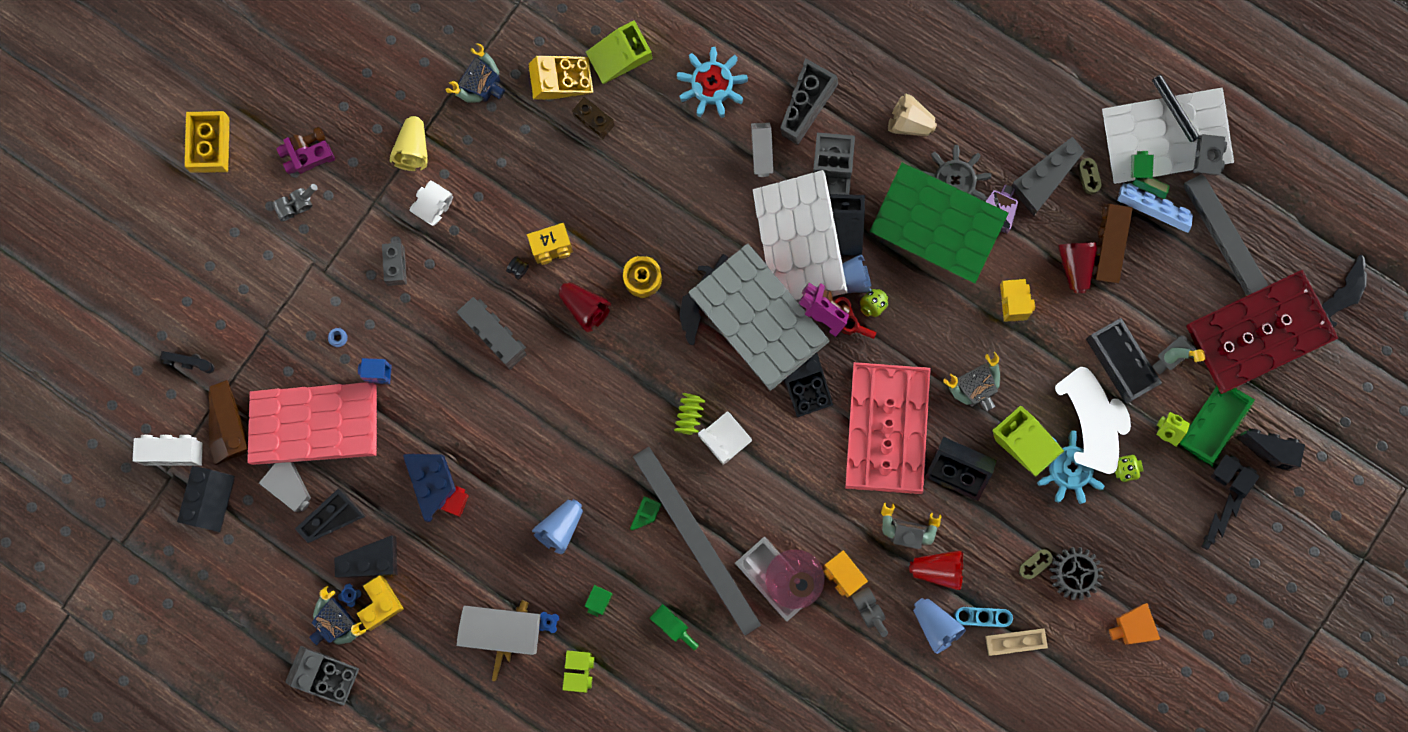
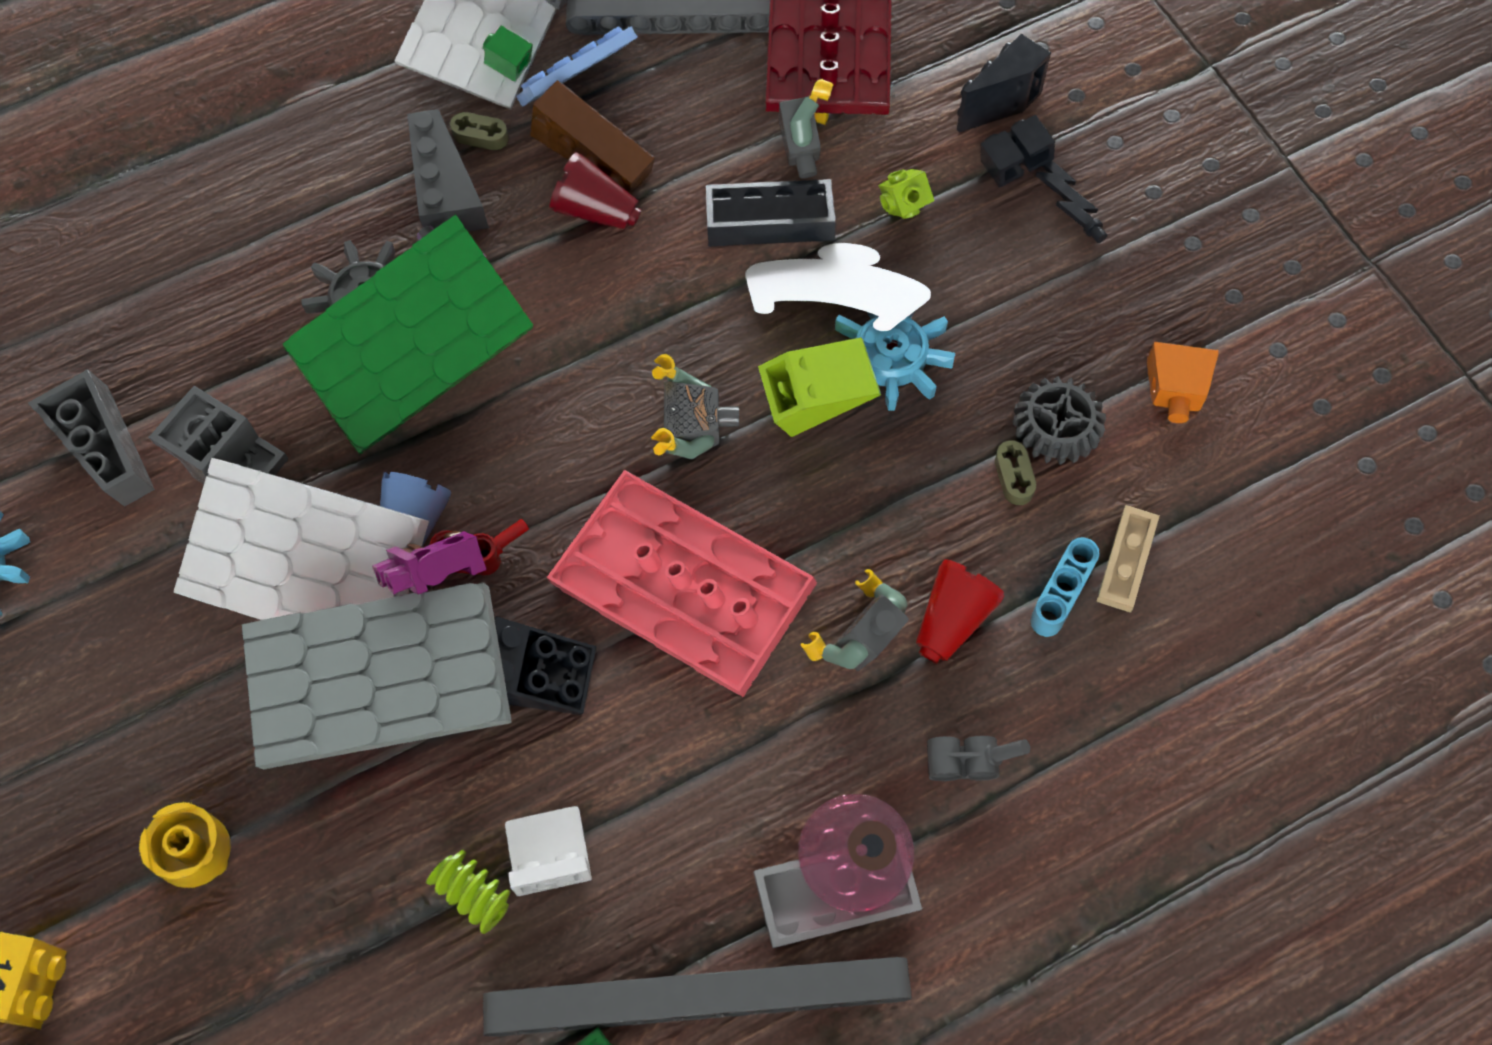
camera: 65 degrees left, 15 degrees down
(584, 305) = (168, 977): dark red cone -> none
(689, 310) = (296, 796): black sword -> none
(762, 149) = (118, 540): light grey slope -> none
(844, 574) = (890, 763): light orange brick -> none
(849, 222) = (320, 463): black slope -> none
(874, 303) = (472, 497): lime head -> none
(911, 118) = (230, 307): tan cone -> none
(937, 625) = (1045, 660): medium blue cone -> none
(961, 468) = (808, 503): black slope -> none
(1016, 300) = (597, 300): yellow brick -> none
(1128, 468) = (935, 273): lime head -> none
(1152, 186) = (545, 61): green tile -> none
(1216, 424) = (929, 140): green slope -> none

